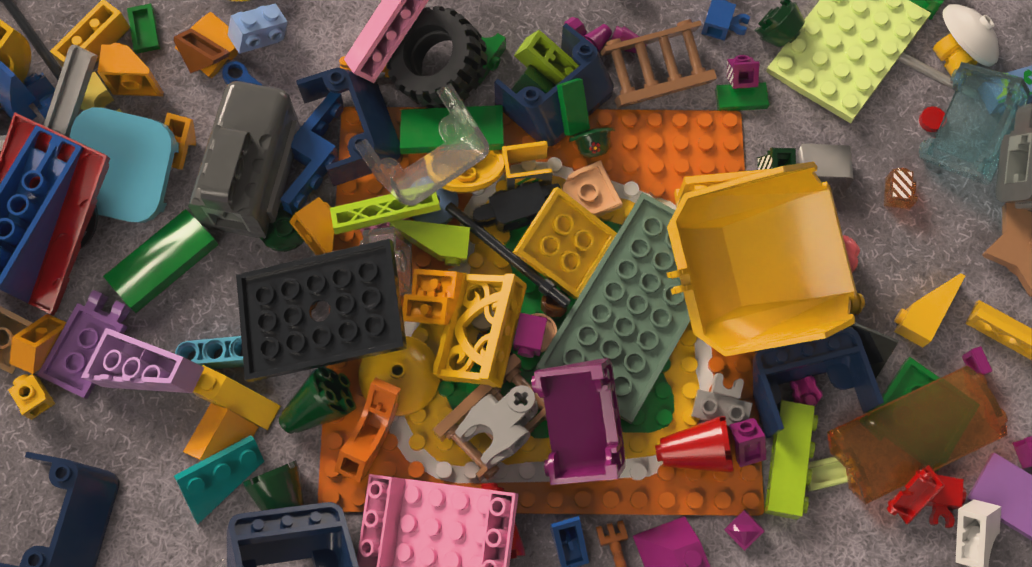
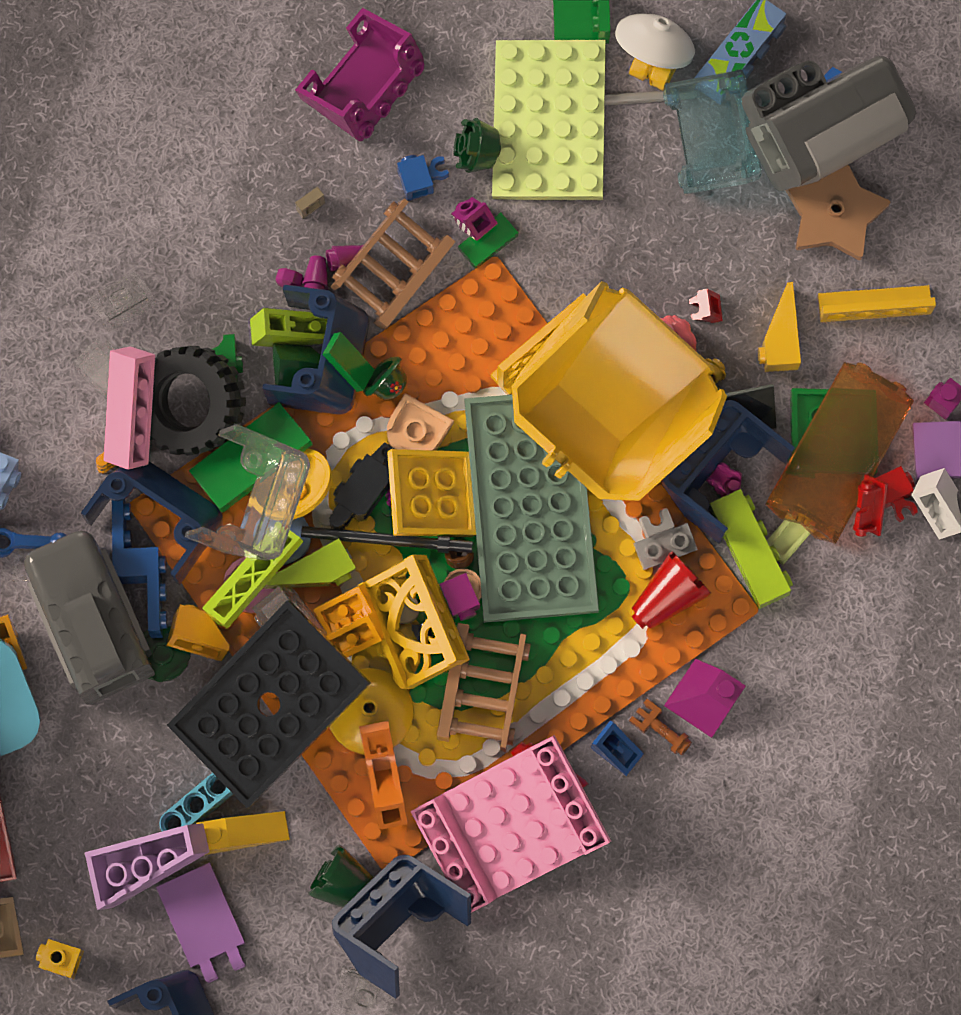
camera: 35 degrees left, 5 degrees up
(34, 343) = (28, 910): light orange slope -> none
(78, 342) = (67, 884): medium lavender tile -> none
(155, 445) = (202, 920): none -> medium lavender tile
(160, 260) = (74, 761): green slope -> none
(218, 431) = (255, 875): light orange slope -> none
(218, 476) = (281, 905): teal wing -> none
(318, 401) = (320, 783): dark green cone -> none
(503, 421) = (493, 687): light grey piece -> none
(523, 153) = (332, 435): yellow piece -> none
(581, 422) = (558, 641): magenta windscreen -> none
(744, 530) = (752, 634): magenta tile -> none
(749, 442) = (706, 558): magenta bracket -> none
(776, 158) = (564, 287): dark green brick -> none
(830, 160) = (605, 257): light grey piece -> none
(883, 251) = (709, 306): none -> tile
(900, 189) = (686, 235): clear orange brick -> none
(931, 118) = (671, 145): red tile -> none
(977, 361) = (850, 353): magenta tile -> none

